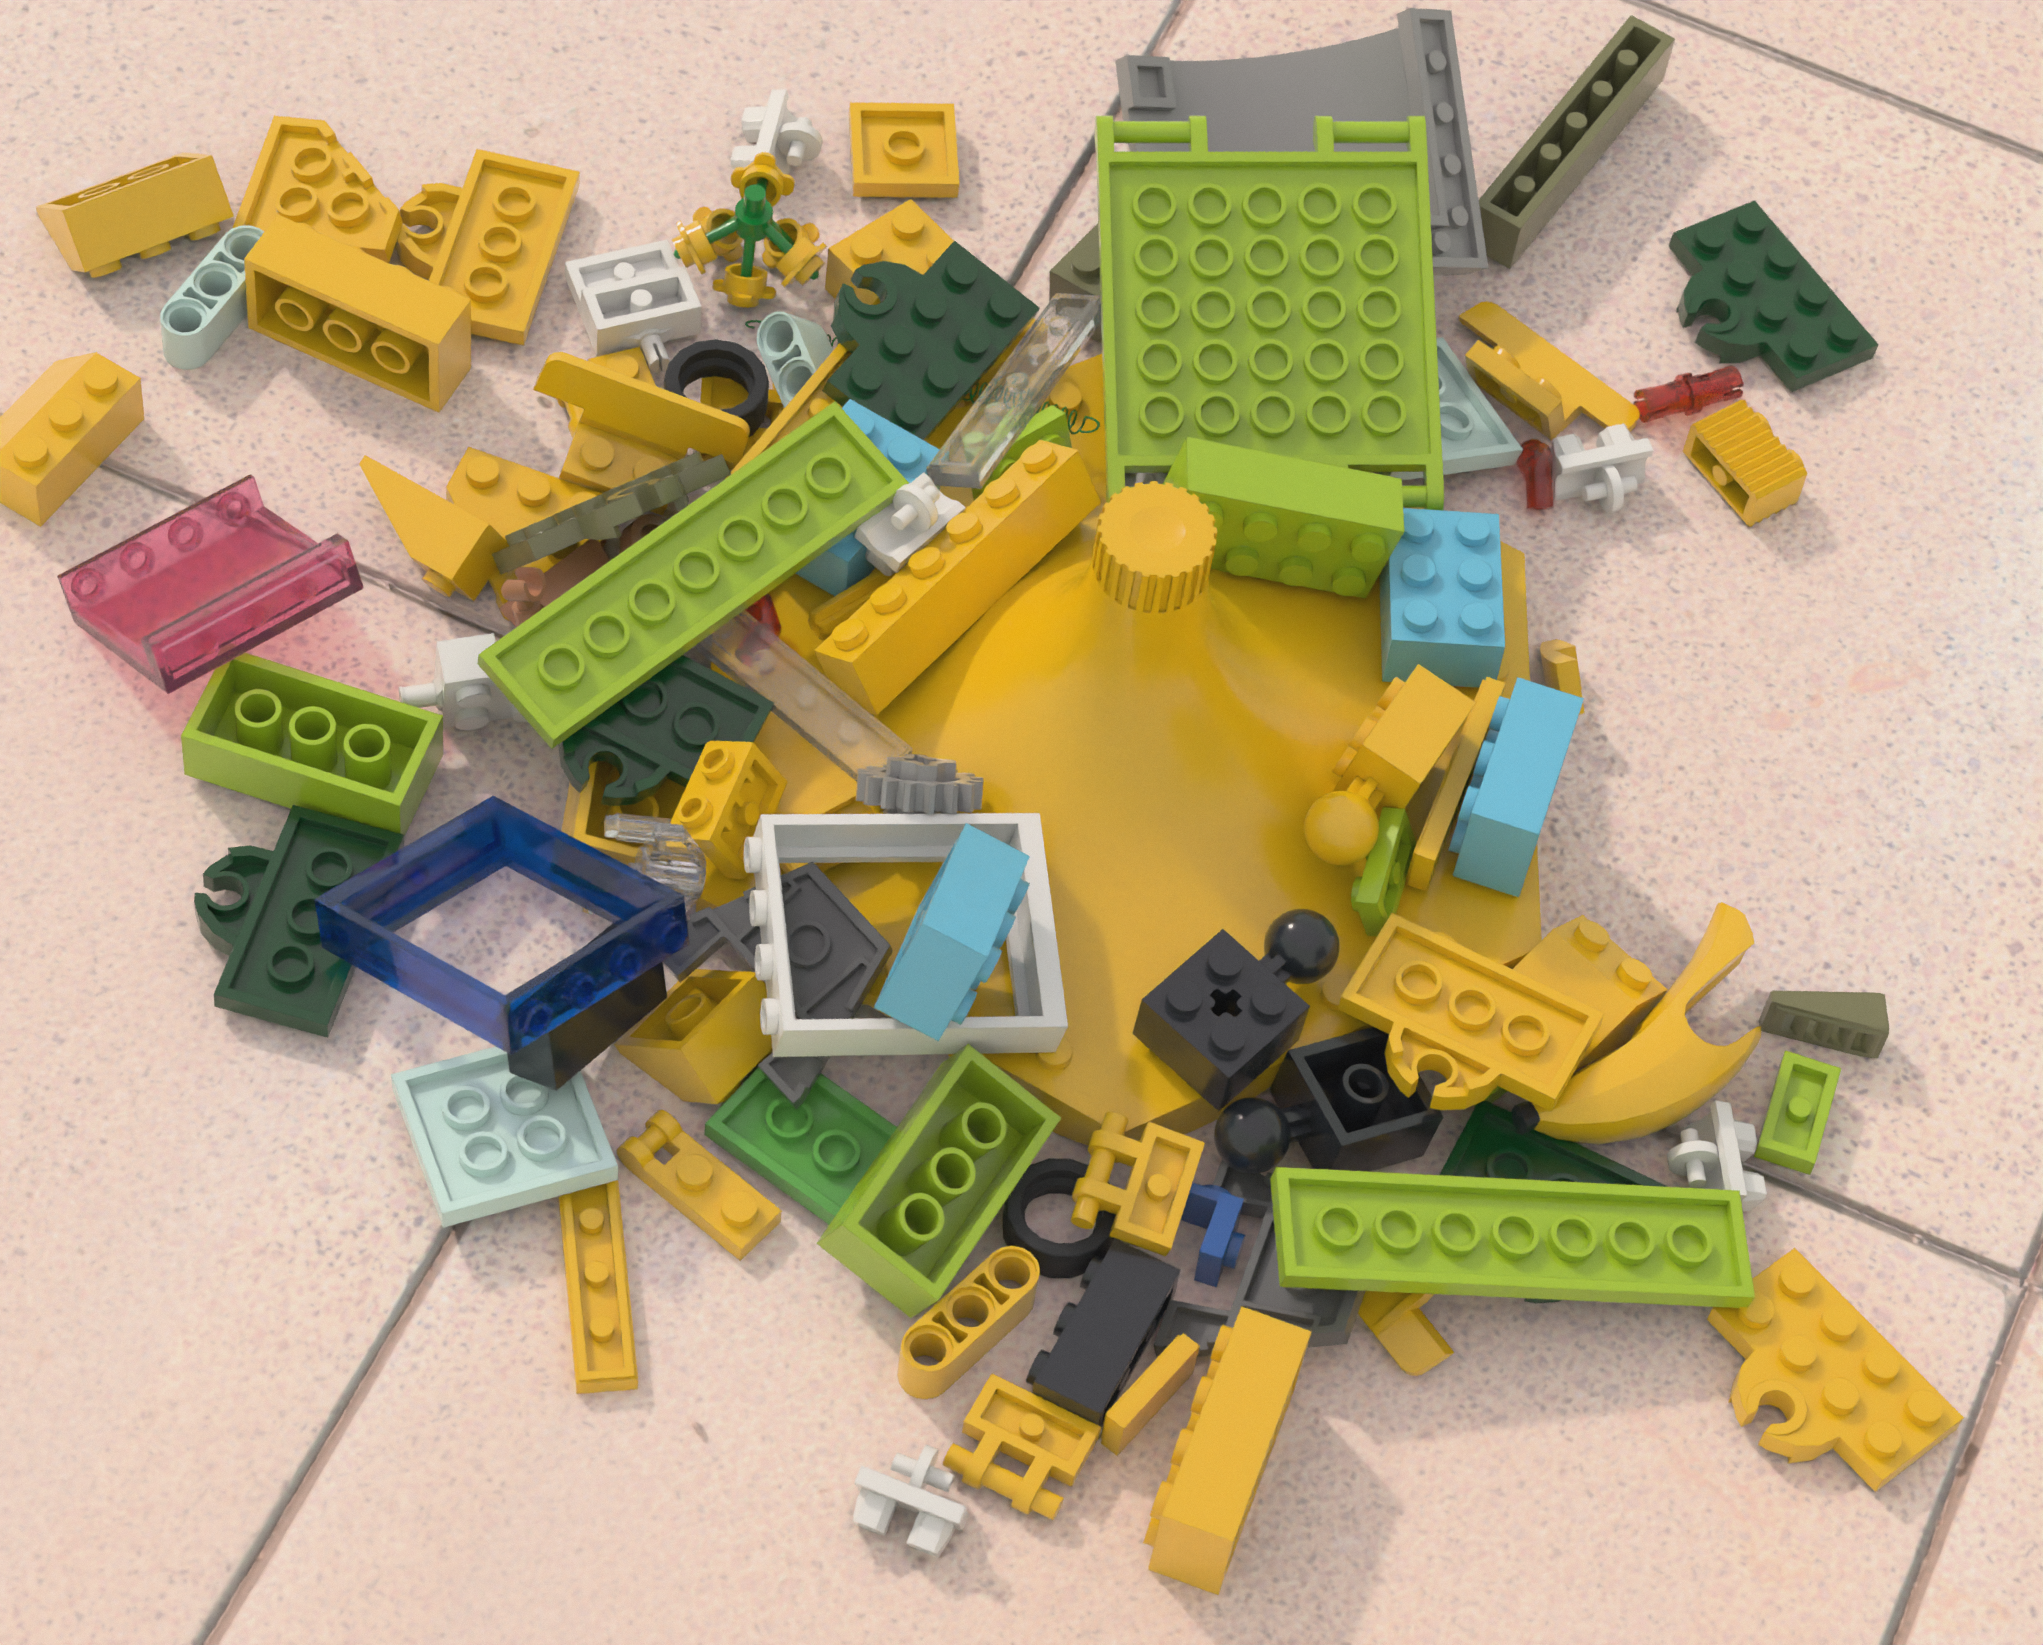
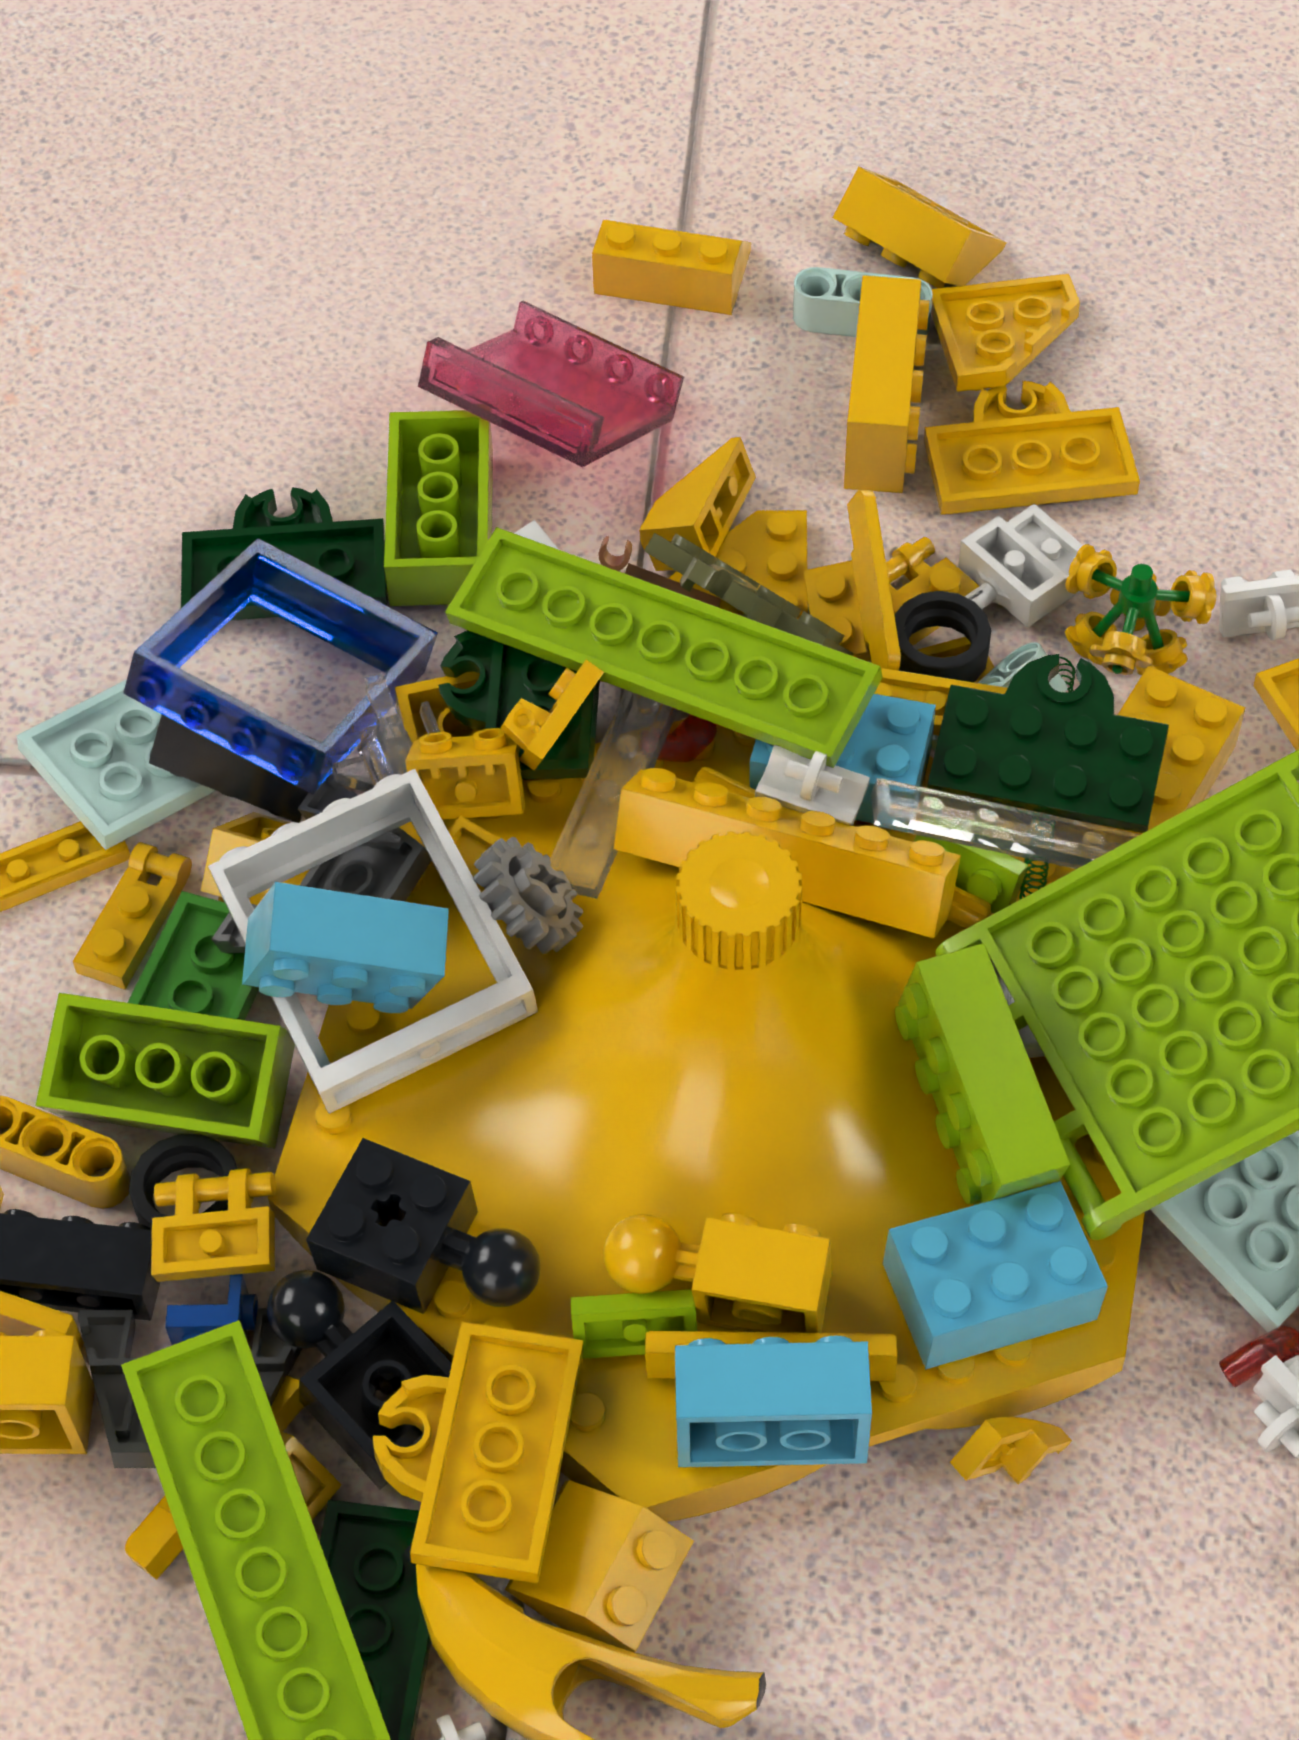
camera: 80 degrees right, 0 degrees up
(723, 689) = (538, 729): none -> yellow hinge

